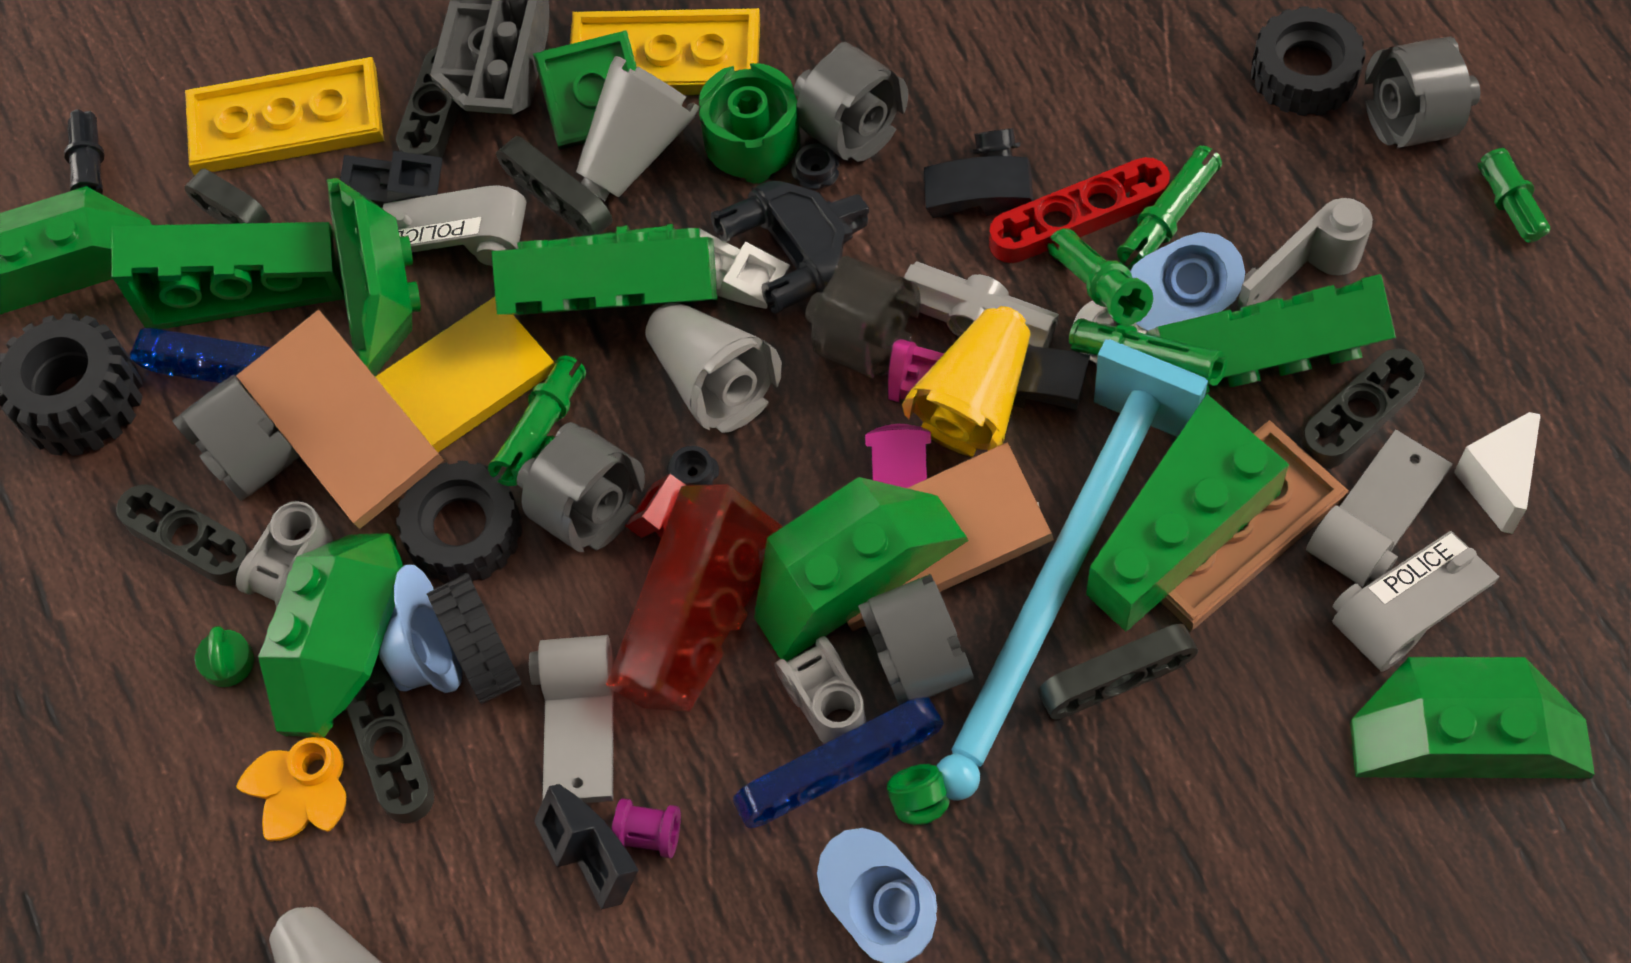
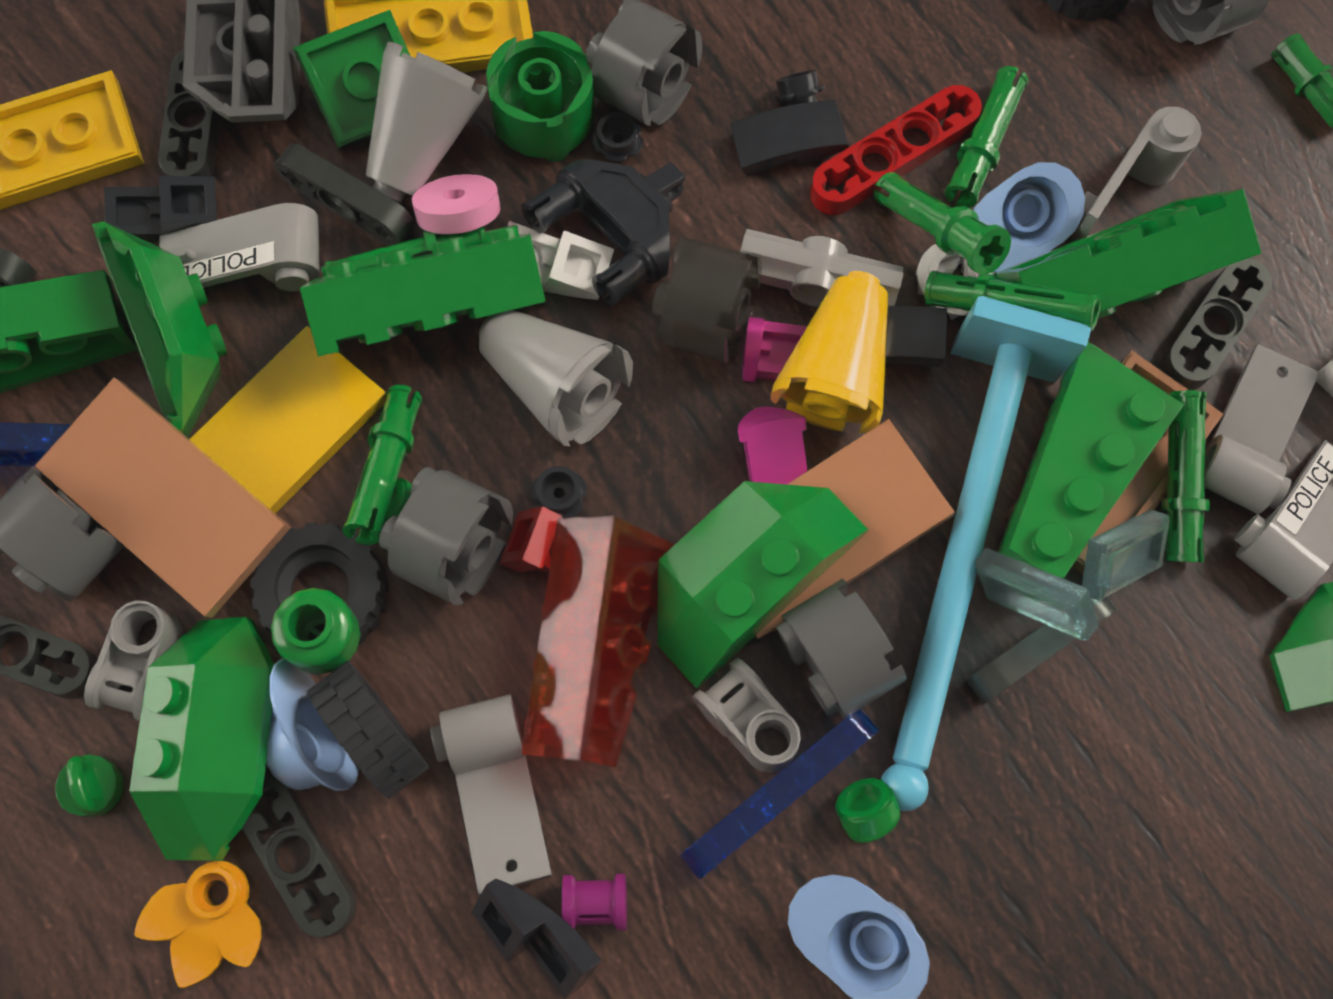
camera: 20 degrees left, 10 degrees up
(445, 543) = (302, 618): none -> green head
(652, 206) = (456, 204): none -> bright pink piece
(1112, 616) = (1037, 594): none -> clear light blue tile
(1210, 596) = (1125, 554): none -> clear light blue tile
(1290, 550) = (1185, 485): none -> green pin

